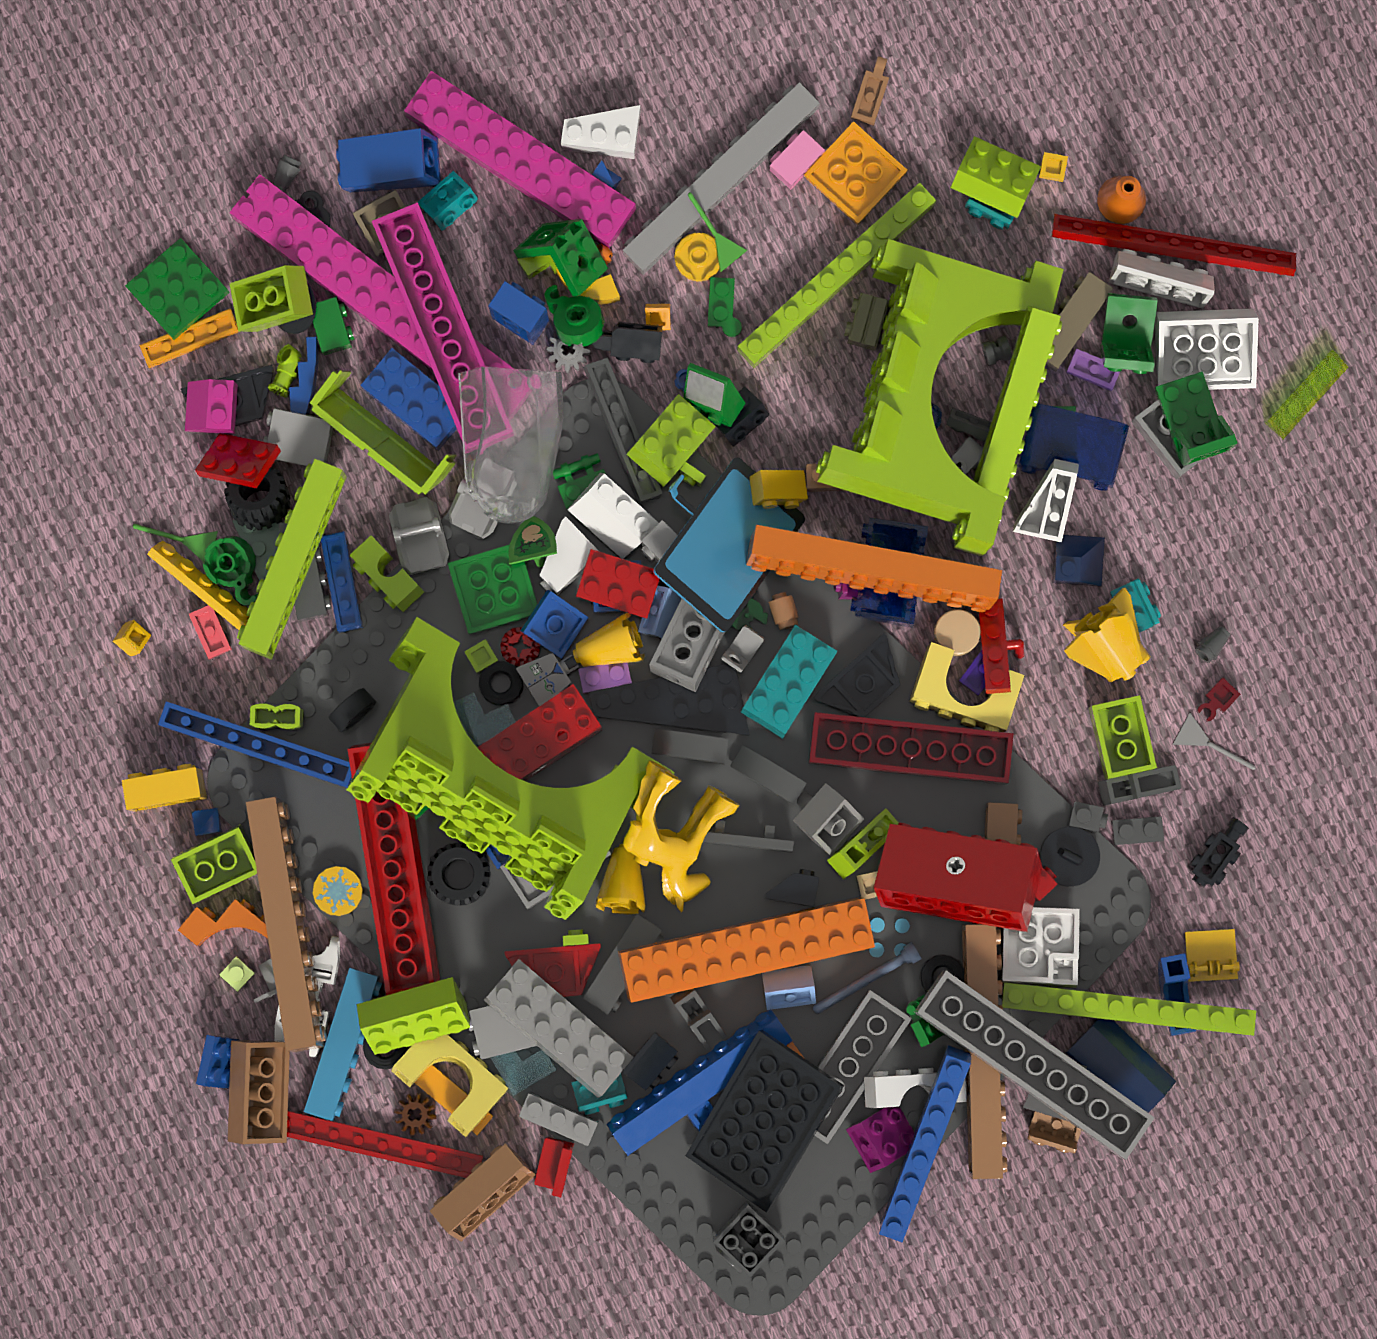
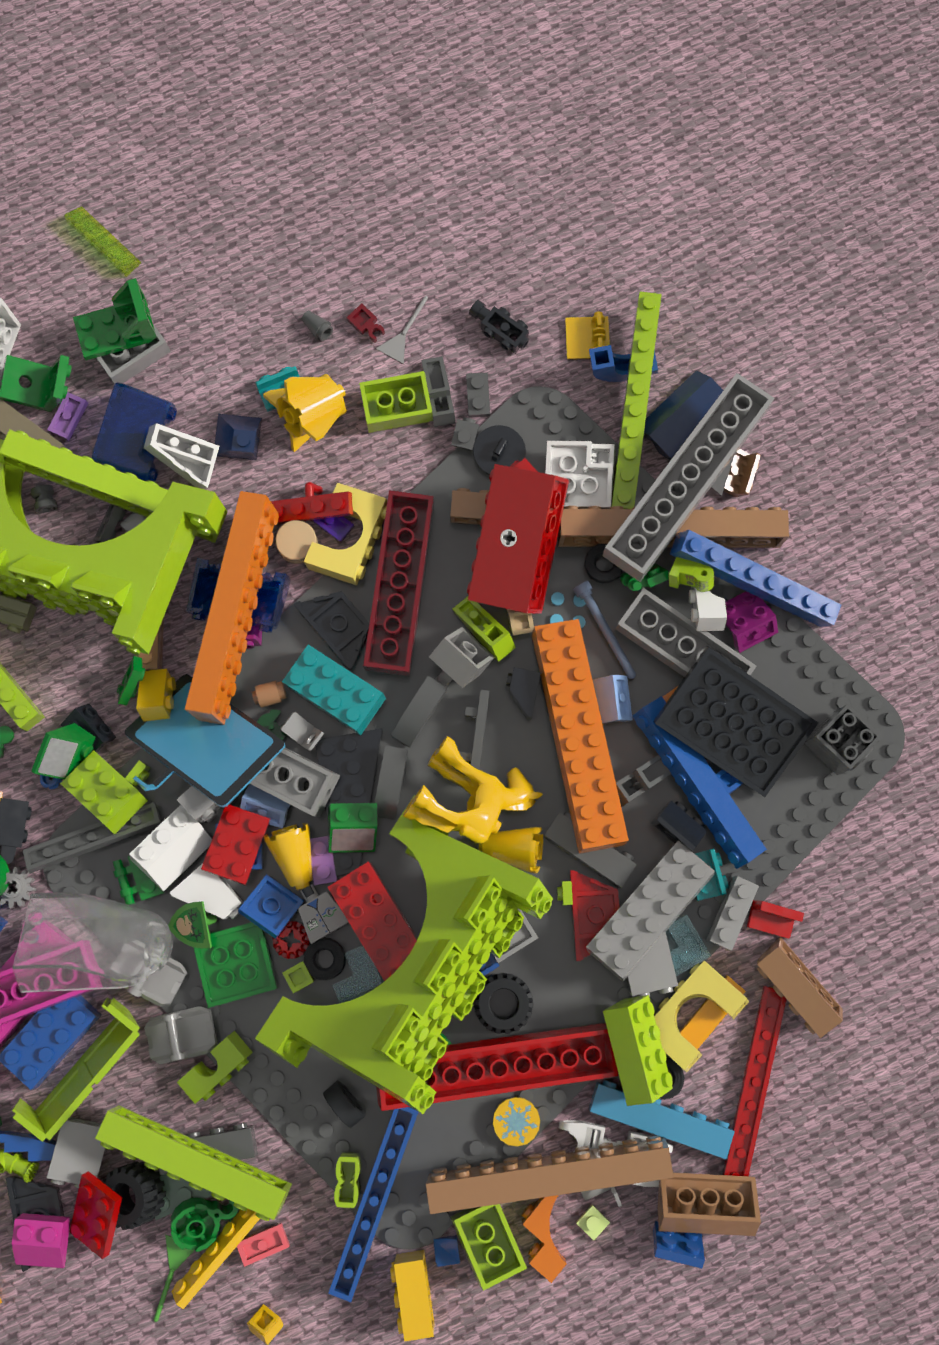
camera: 90 degrees left, 5 degrees down
(341, 582) = (221, 1112): blue tile -> none
(416, 1122) = (734, 1048): reddish brown gear -> none
(639, 707) = (352, 827): none -> green slope
(791, 460) = (132, 676): none -> green hinge
(925, 1069) = (691, 574): none -> lime leg
(1208, 341) = (48, 315): white slope -> none

